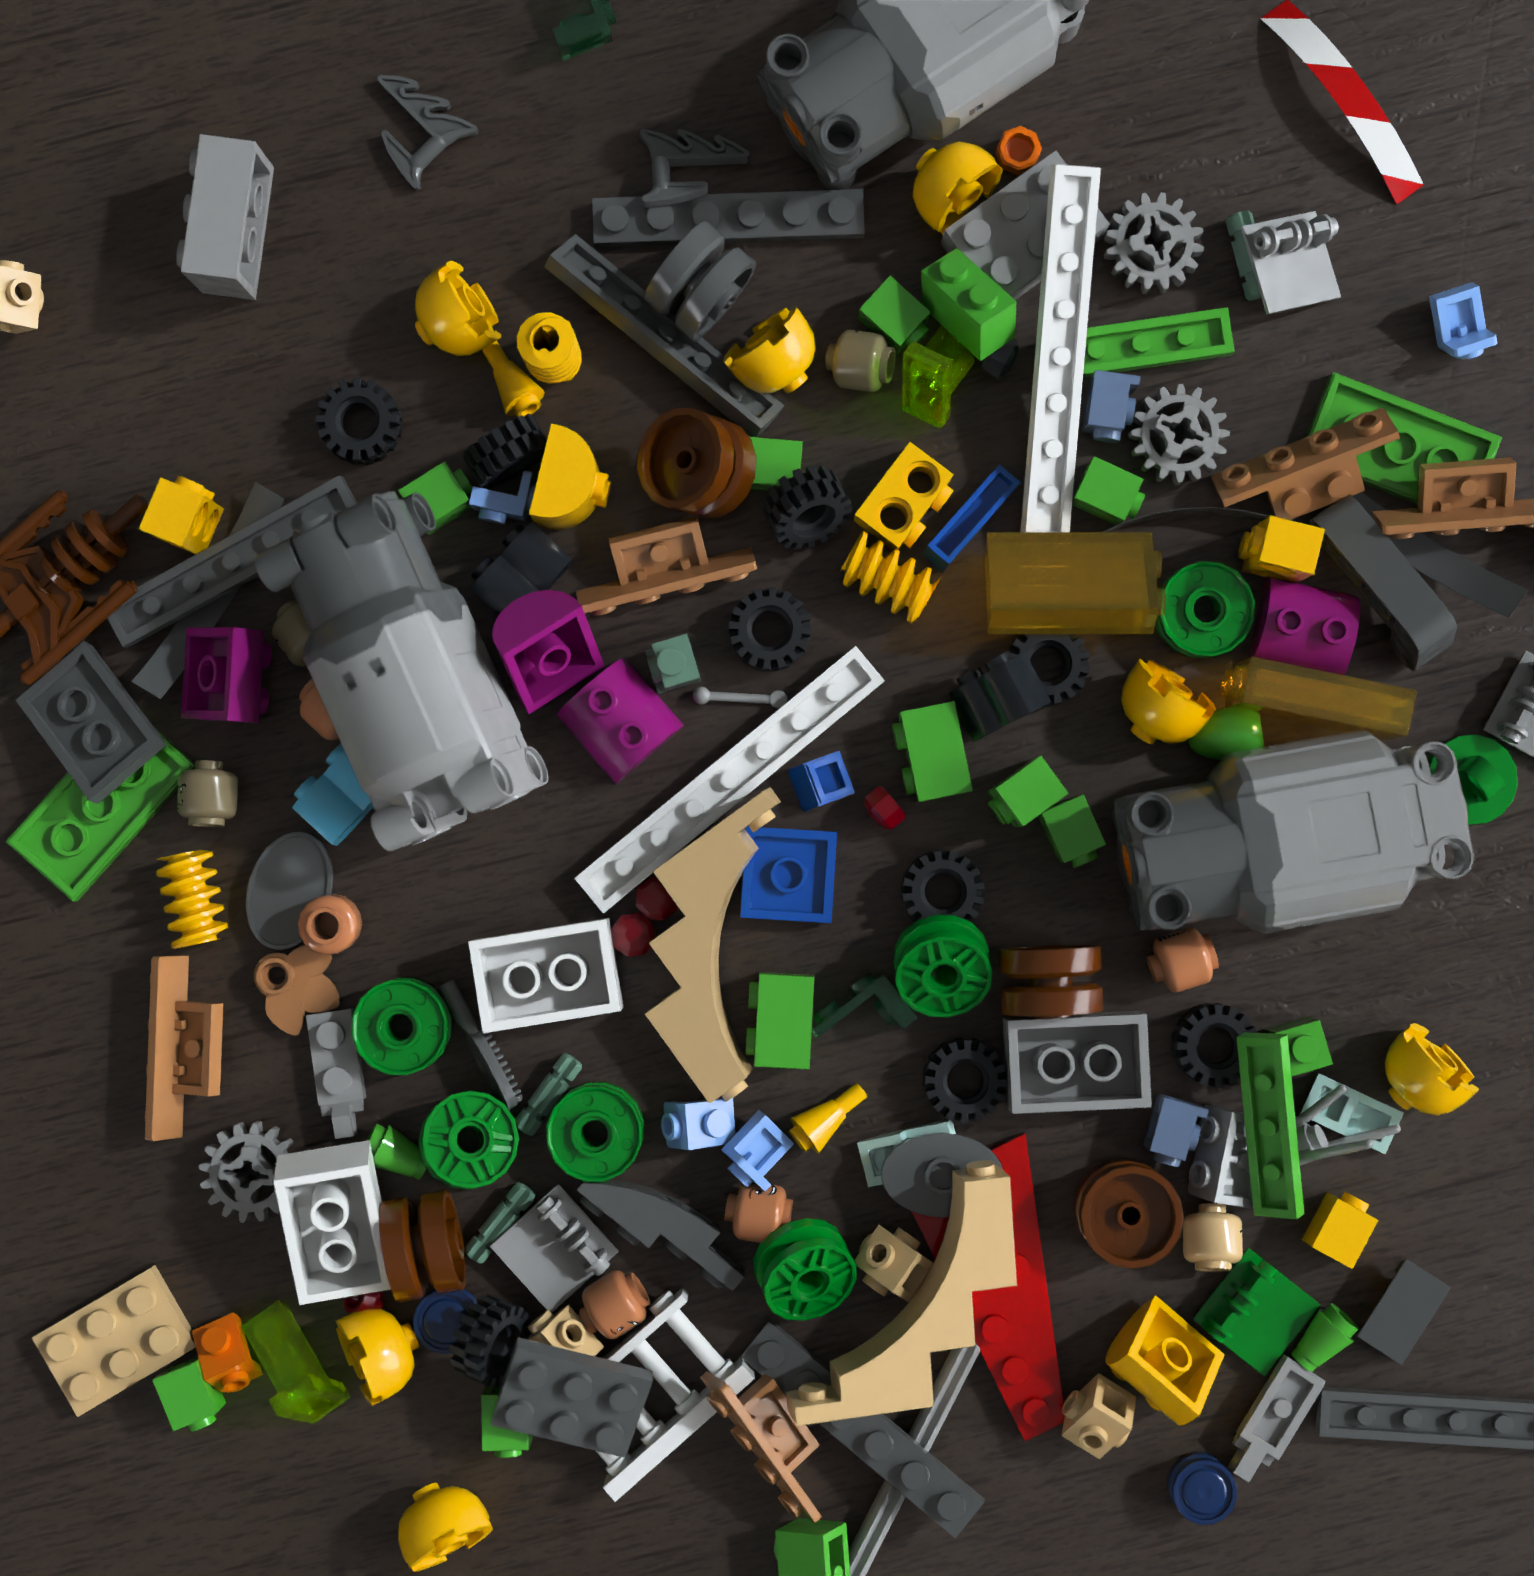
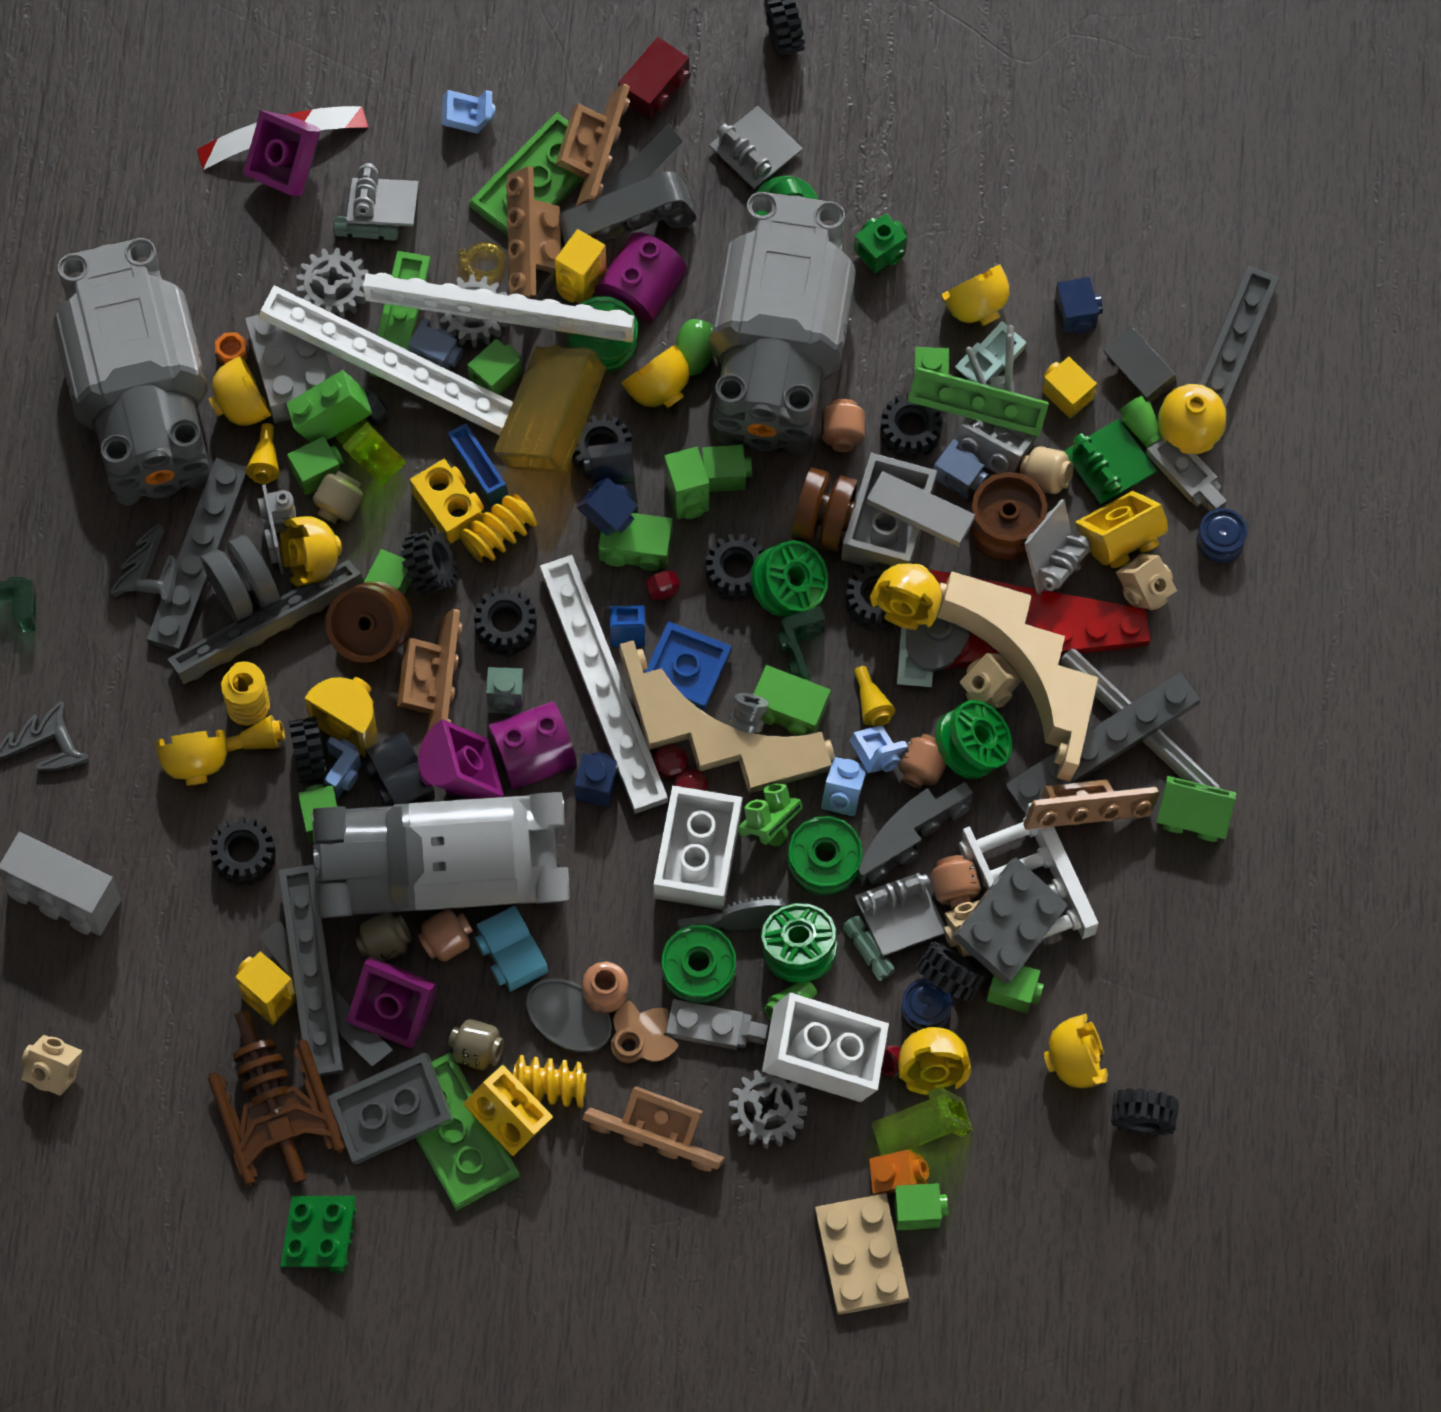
camera: 70 degrees left, 20 degrees down
(130, 864) = (507, 1110): none -> yellow brick
(422, 1245) = (867, 988): reddish brown wheel -> none
(548, 1094) = (783, 879): sand green axle -> none
(597, 817) = (596, 779): none -> dark blue brick
(618, 1049) = (770, 817): none -> bright green hips
(737, 979) = (748, 712): none -> dark grey wheel
(777, 699) = (557, 636): light grey hinge -> none
(801, 289) = (275, 509): none -> light grey hinge
(879, 249) = (263, 463): none -> yellow cone
(949, 708) = (608, 507): none -> dark blue brick
(963, 1130) = (908, 595): none -> yellow cylinder
(1086, 1106) = (920, 509): none -> light grey tile
(1095, 1292) = (1054, 550): none -> light grey hinge
(1180, 449) = (501, 308): none -> white plate
(1253, 397) = (466, 257): none -> clear yellow piece
(1309, 107) = (282, 152): none -> magenta brick
(1319, 698) = (690, 278): clear yellow brick -> none
(1346, 1406) = (1192, 418): none -> yellow cylinder
(1459, 922) = (881, 242): none -> green brick
(1460, 1204) = (1078, 305): none -> dark blue brick

